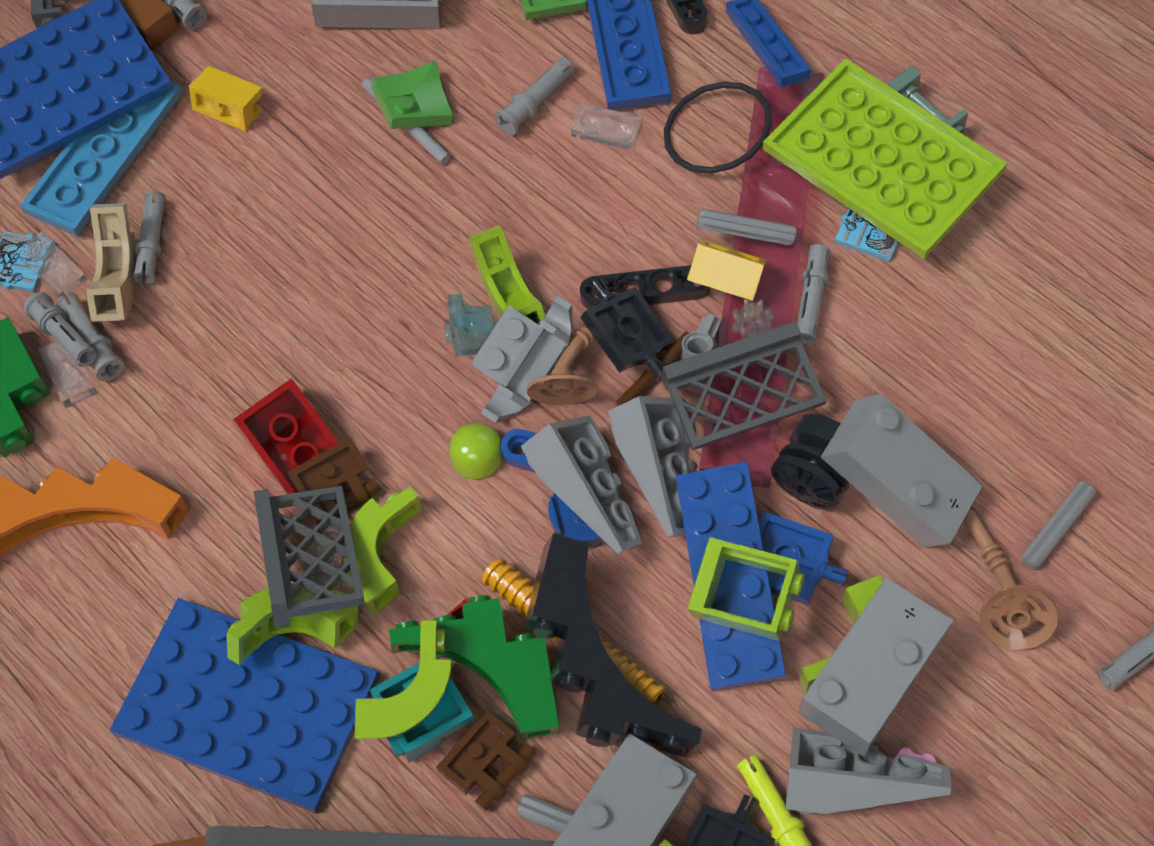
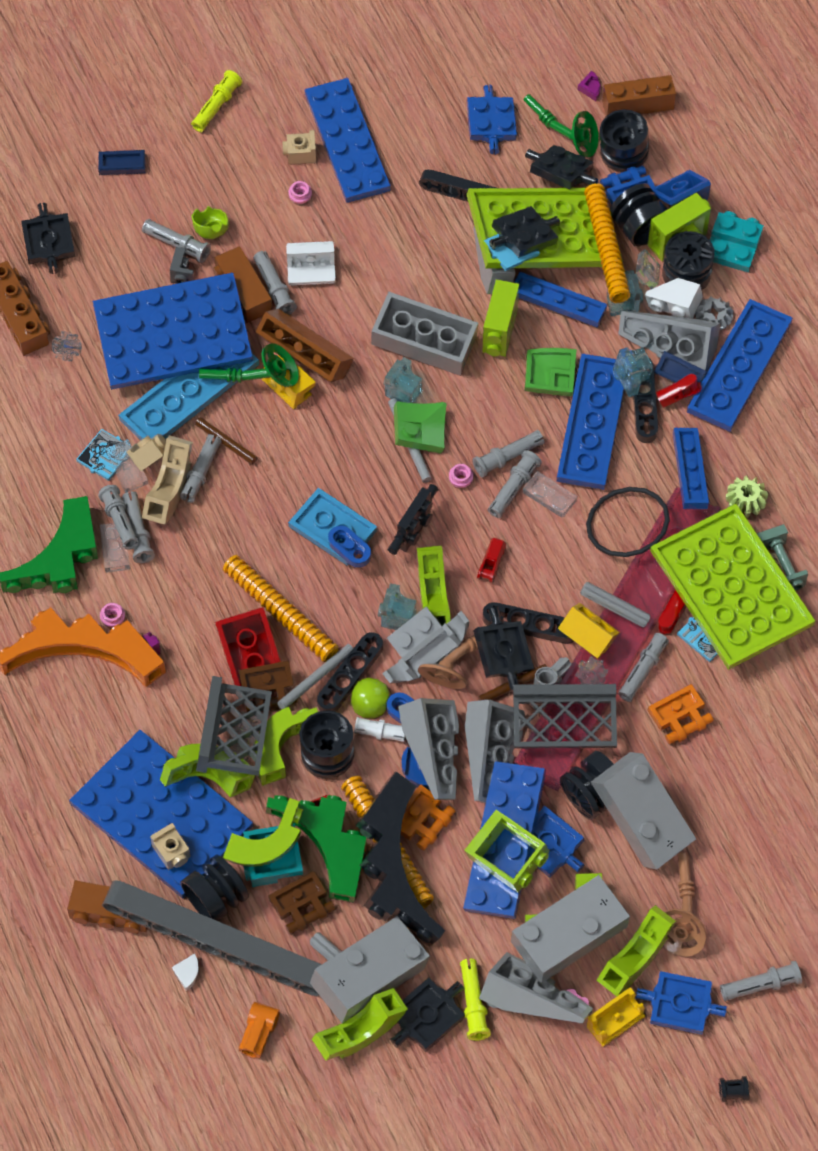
camera: 15 degrees right, 0 degrees up
(73, 236) = (147, 451): none -> tan brick
(88, 451) = (112, 608): none -> bright pink plate
(159, 475) = (153, 642): none -> magenta tile
(173, 194) = (226, 440): none -> reddish brown bar
(204, 83) = (274, 368): none -> green dish
(233, 50) = (305, 345): none -> dark orange brick
(264, 737) = (163, 840): none -> tan brick
(315, 375) = (280, 608): none -> light orange piece
(346, 252) = (322, 514): none -> dark azure plate
(361, 780) = (218, 886): none -> black wheel
(370, 54) = (402, 383): none -> clear light blue brick
(381, 266) = (352, 546): none -> blue plate
(393, 447) = (315, 677): none -> light grey bar
(436, 427) = (347, 671): none -> black beam
(442, 529) = (327, 744): none -> black wheel
(449, 208) = (413, 520): none -> black plate
(483, 134) = (464, 470): none -> bright pink plate
(504, 487) = (379, 729): none -> white pin
(560, 117) = (519, 475): none -> light grey pin
(566, 226) = (492, 558): none -> red bar
(601, 571) = (418, 810): none -> orange plate
(818, 216) = (671, 614): none -> red bar
(850, 45) = (755, 494): none -> yellowish green gear
(876, 329) = (677, 707): none -> orange plate
(973, 665) = (638, 953): none -> lime arch
(982, 767) = (615, 1017): none -> yellow hinge
(1058, 525) = (739, 883): light grey axle -> none
(1058, 714) = (681, 1002): none -> blue plate

